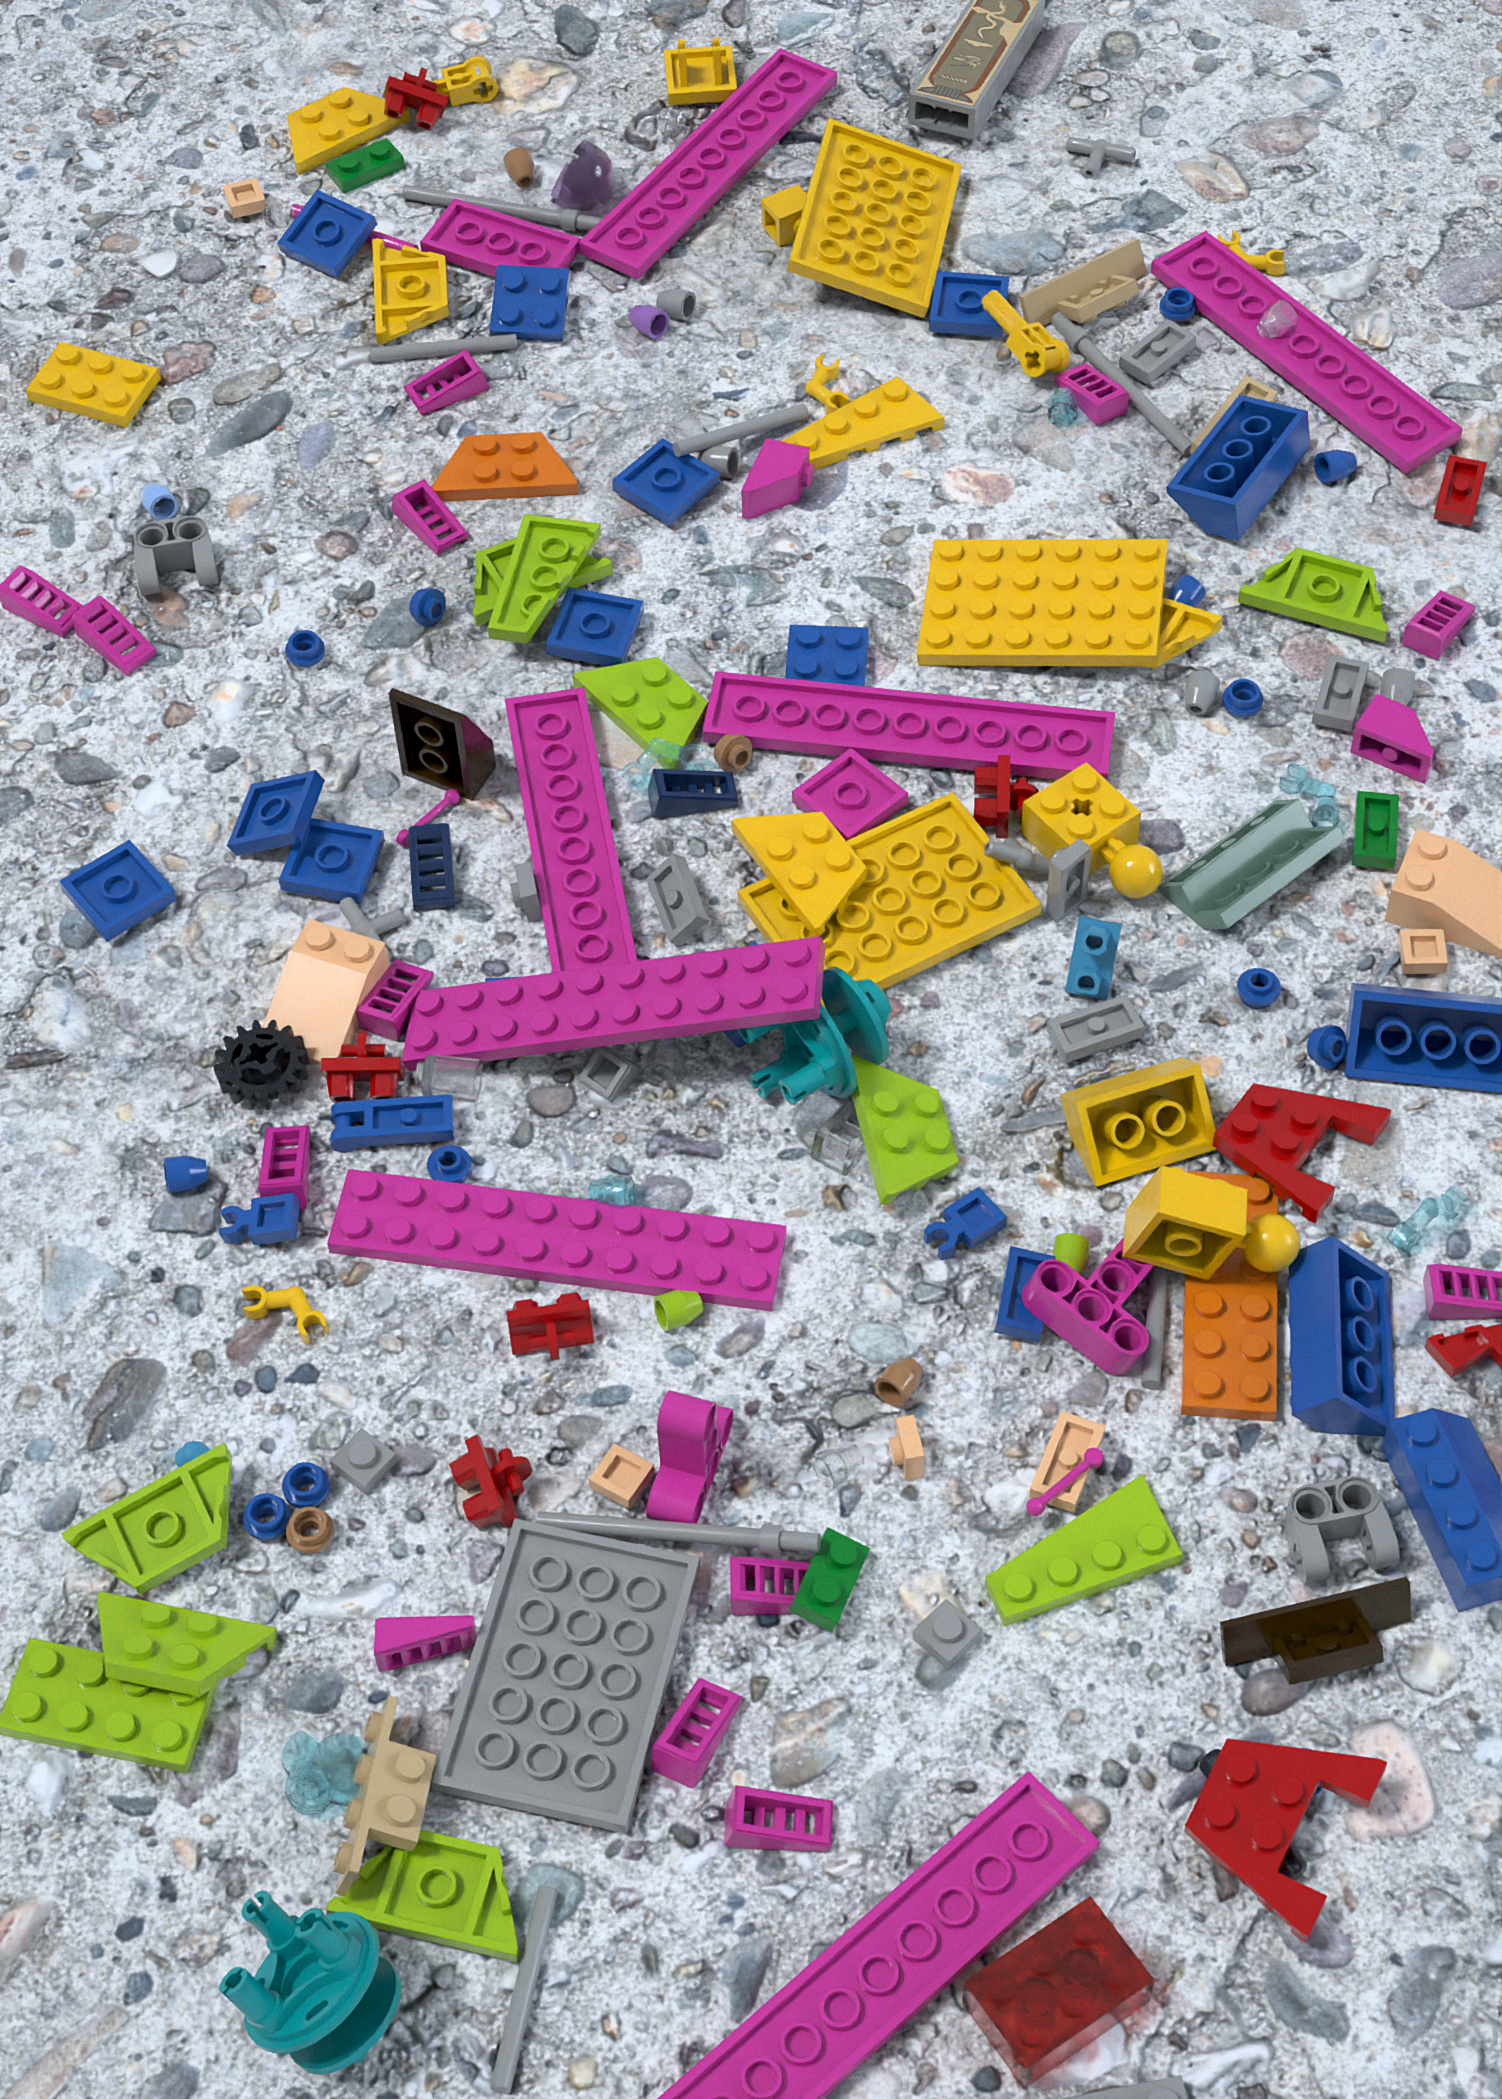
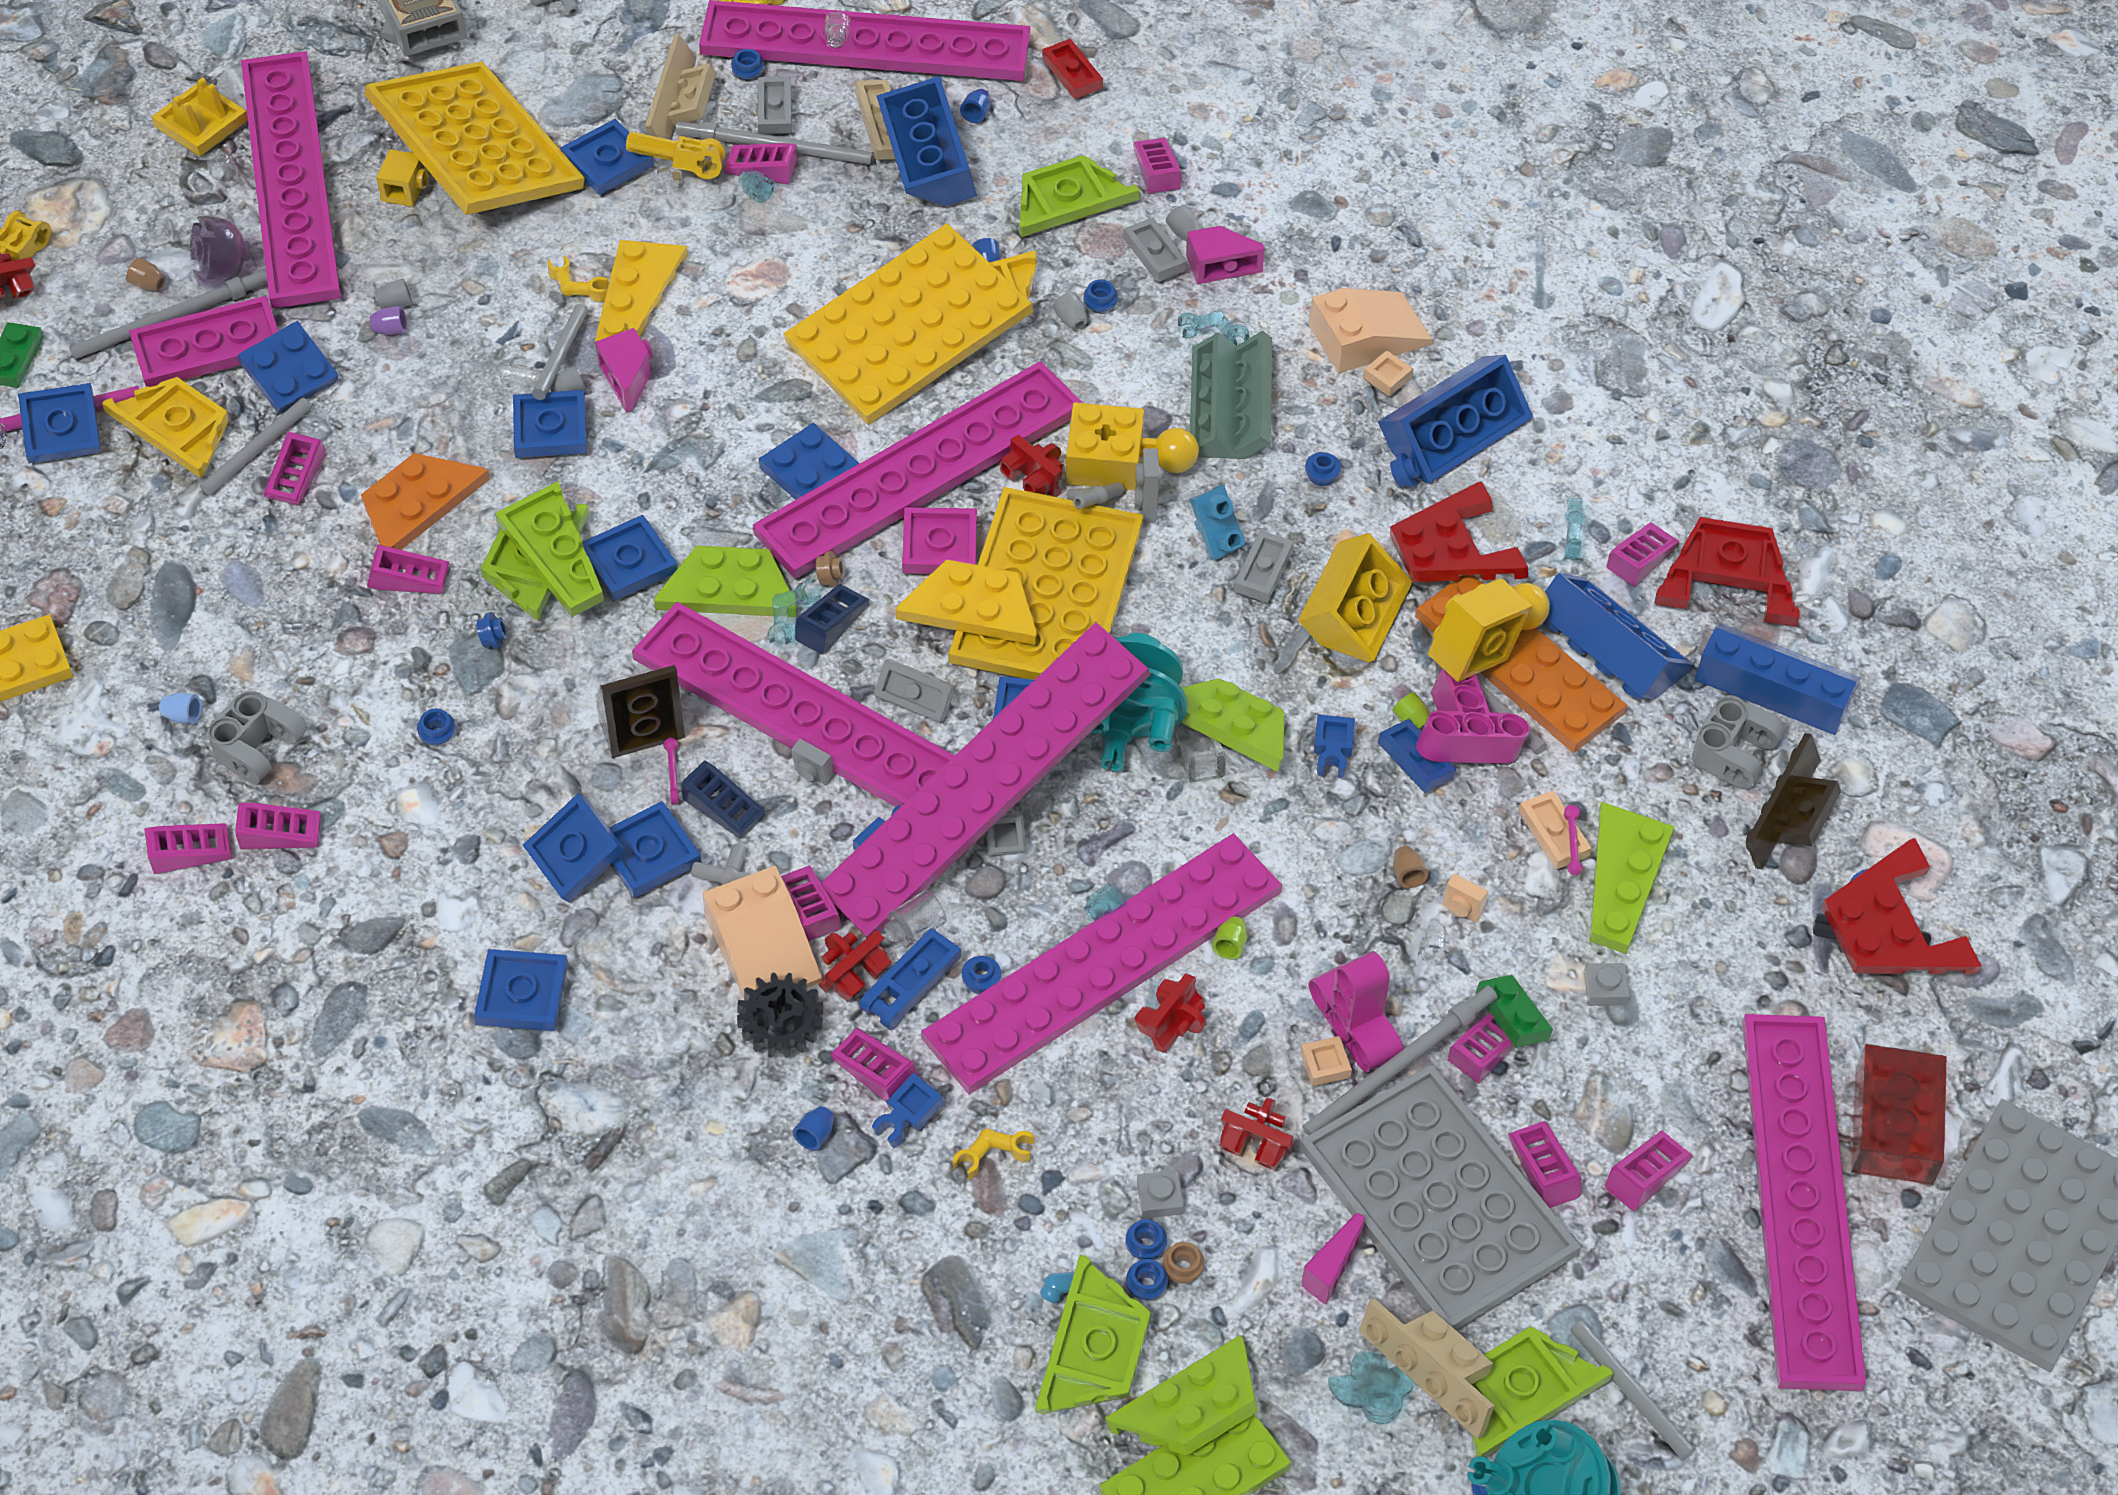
camera: 50 degrees left, 0 degrees up
(1375, 830) = (1276, 319): green plate -> none

